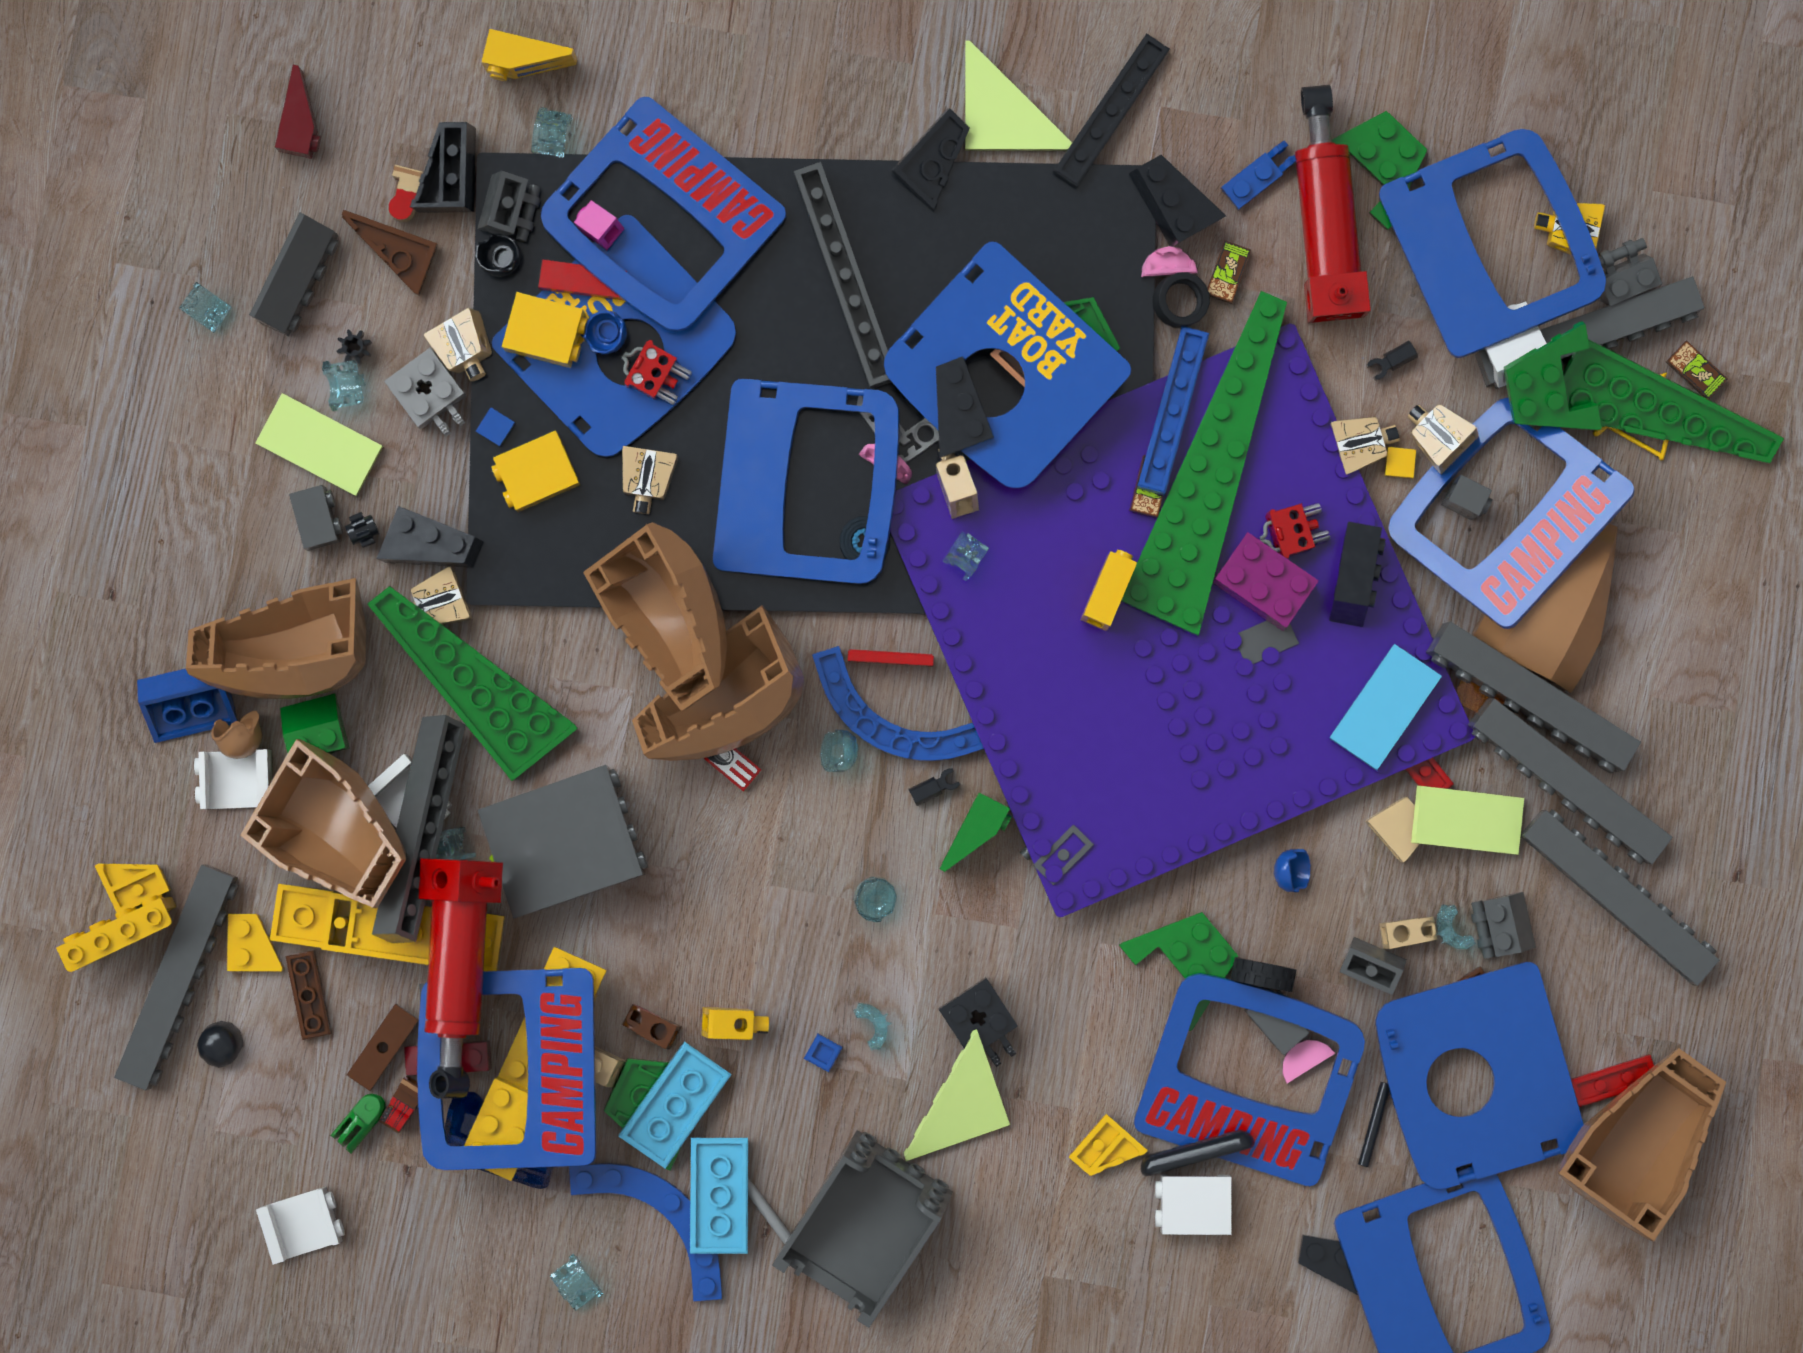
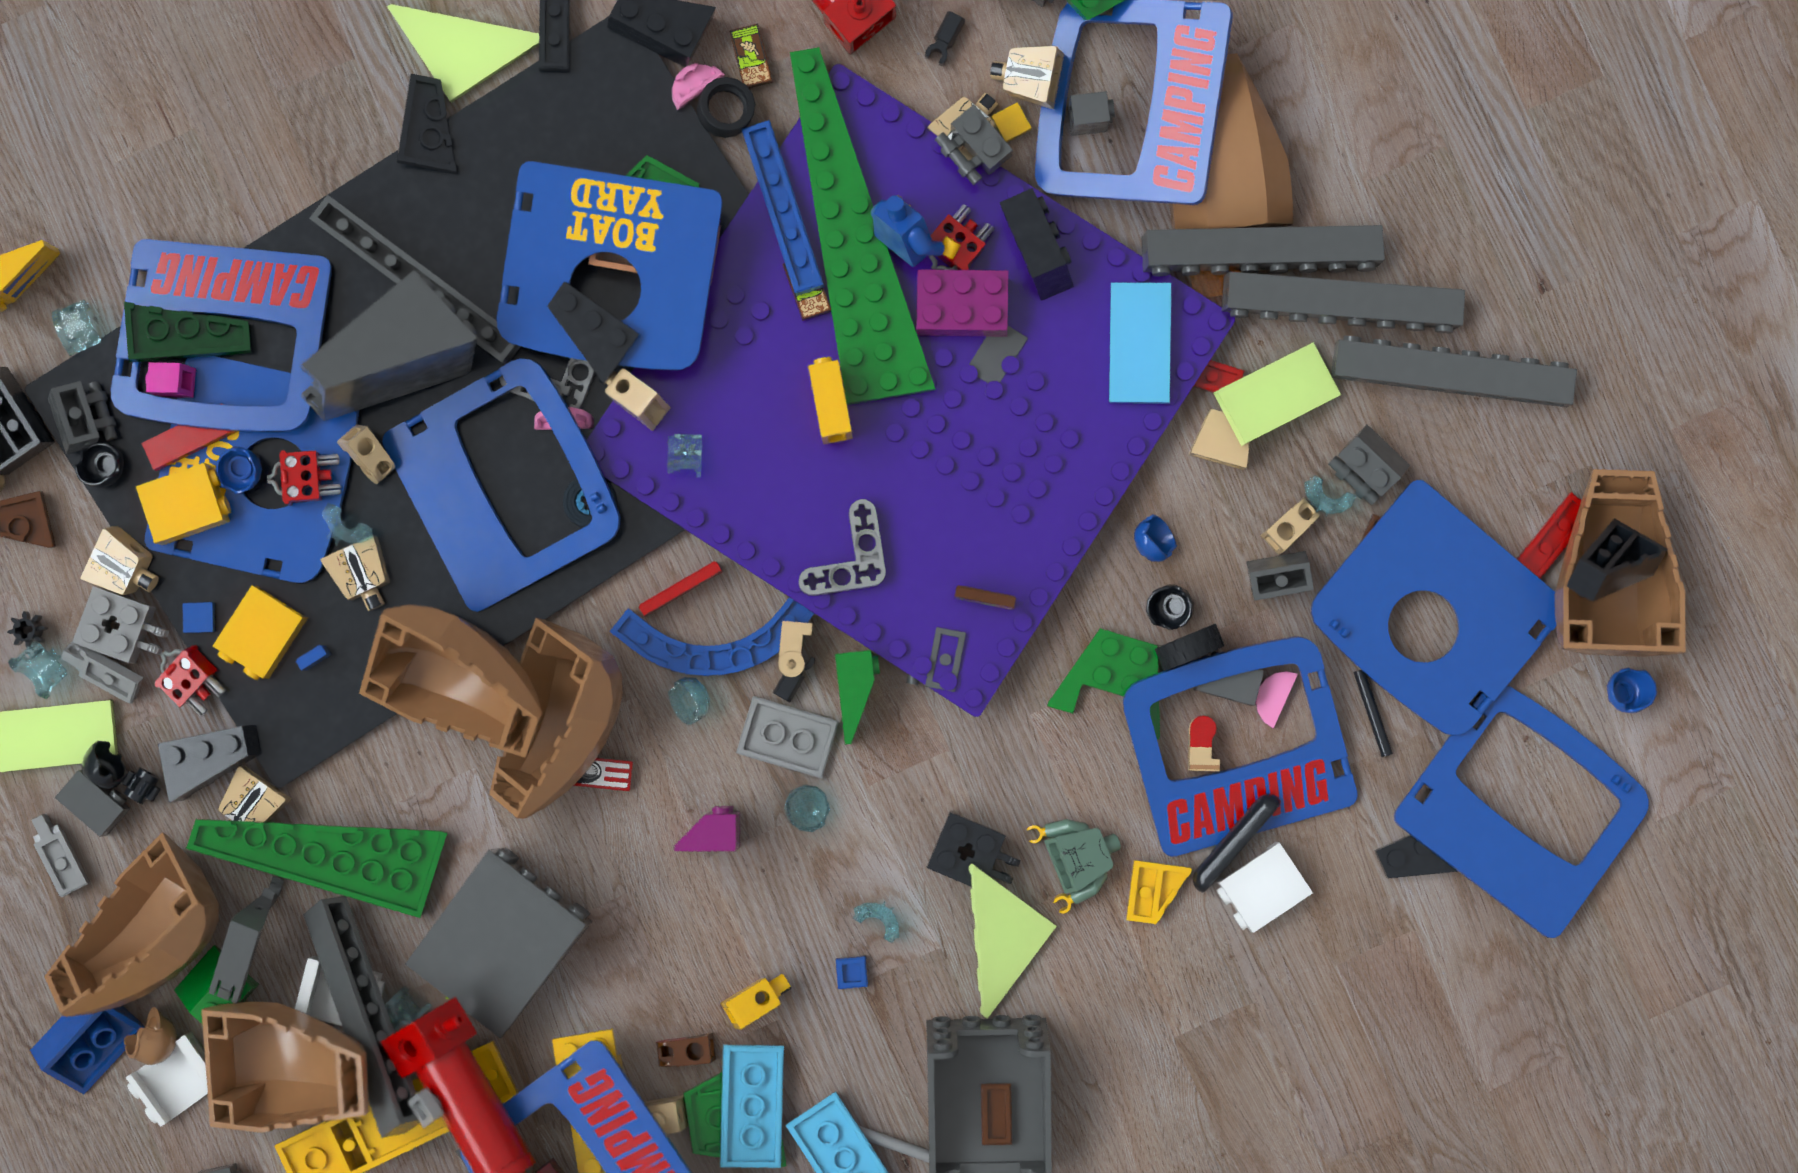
camera: 35 degrees left, 0 degrees up
(259, 542) = (58, 856): none -> light grey hinge
(343, 496) = (102, 766): none -> black hair
(361, 709) = (241, 944): none -> dark grey hinge
(391, 420) = (103, 672): none -> light grey hinge
(423, 933) = (426, 1107): none -> light grey plate
(454, 469) = (187, 677): none -> piece
(565, 519) = (313, 657): none -> blue tile
(625, 191) = (170, 334): none -> dark green wing
(655, 418) = (358, 534): none -> clear light blue piece
(715, 386) = (367, 453): none -> tan leg
(789, 868) = (713, 832): none -> magenta slope
(791, 320) = (390, 351): none -> dark grey windscreen
(863, 1241) = (996, 1114): none -> reddish brown tile
(896, 832) = (787, 737): none -> light grey tile
(941, 772) = (790, 654): none -> tan leg
(1051, 730) = (862, 557): none -> light grey beam
(1063, 1082) = (1079, 858): none -> sand green torso
(1127, 826) = (985, 597): none -> reddish brown tile
(1218, 1059) = (1200, 745): none -> leg
(1259, 496) = (907, 233): none -> blue torso
(1269, 932) = (1170, 607): none -> black hair
(1365, 461) = (980, 140): none -> dark grey brick
(1592, 1244) = (1631, 690): none -> blue hair
(1646, 1133) = (1615, 562): none -> black wedge

